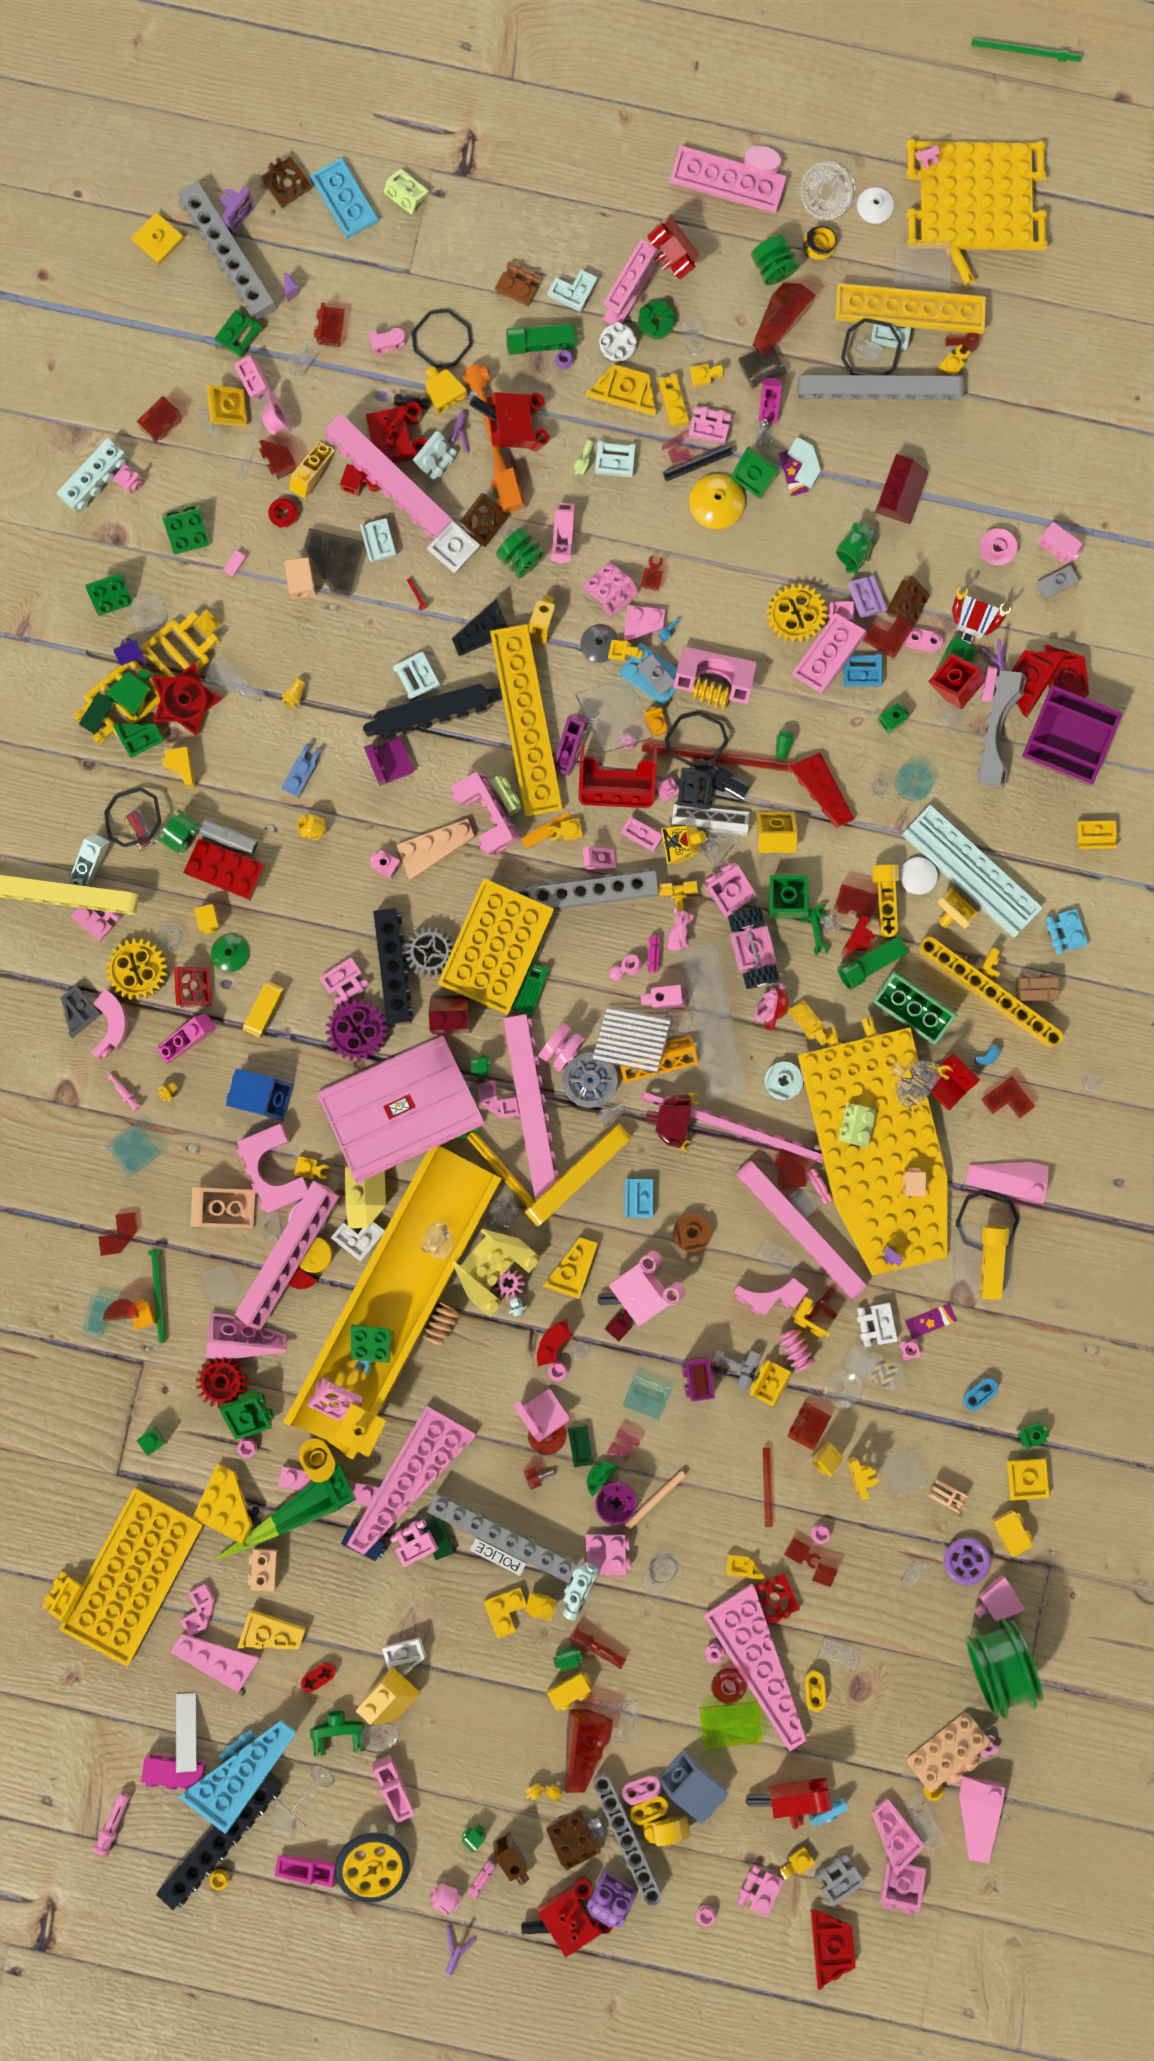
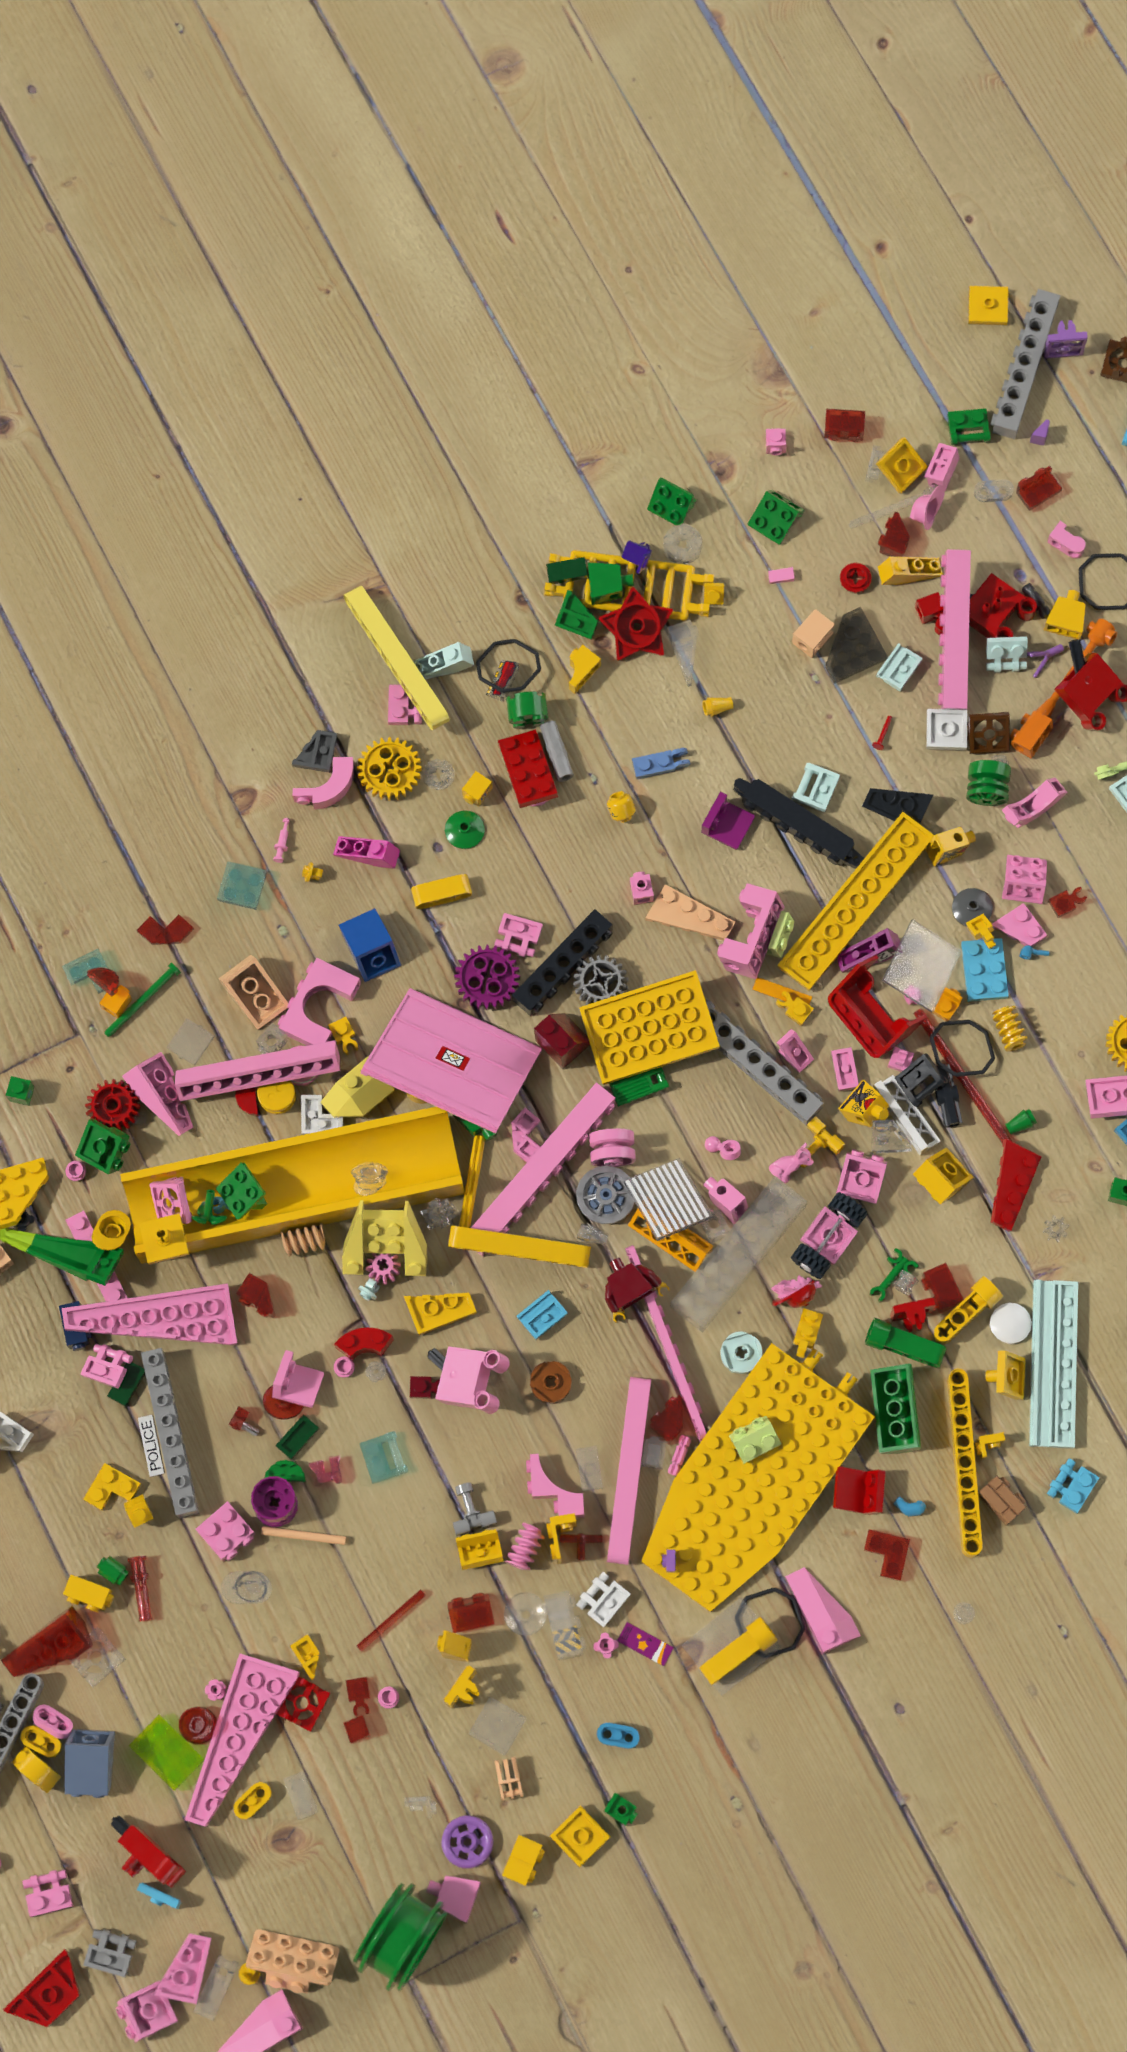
camera: 55 degrees right, 10 degrees down
(92, 476) = (753, 413): light aqua brick -> none
(204, 974) = (430, 821): red piece -> none
(362, 1380) = (205, 1211): none -> green plant
(452, 1390) = (257, 1294): none -> clear red slope
(481, 1066) = (542, 1098): green plate -> none
(579, 1589) = (182, 1527): light aqua brick -> none
(654, 954) = (755, 1161): dark pink axle -> none
(656, 675) = (985, 971): light grey plate -> none
(699, 1379) = (432, 1485): magenta piece -> none
(735, 670) = (1024, 993): bright pink arch -> none
(789, 896) = (897, 1229): green brick -> none
(799, 1861) = (99, 1906): yellow plate -> none
(914, 1182) = (747, 1526): light nougat brick -> none
(917, 1082) = (832, 1457): clear torso -> none
(922, 776) = (1096, 1257): clear light blue plate -> none
(993, 1749) = (325, 1995): bright pink plate -> none

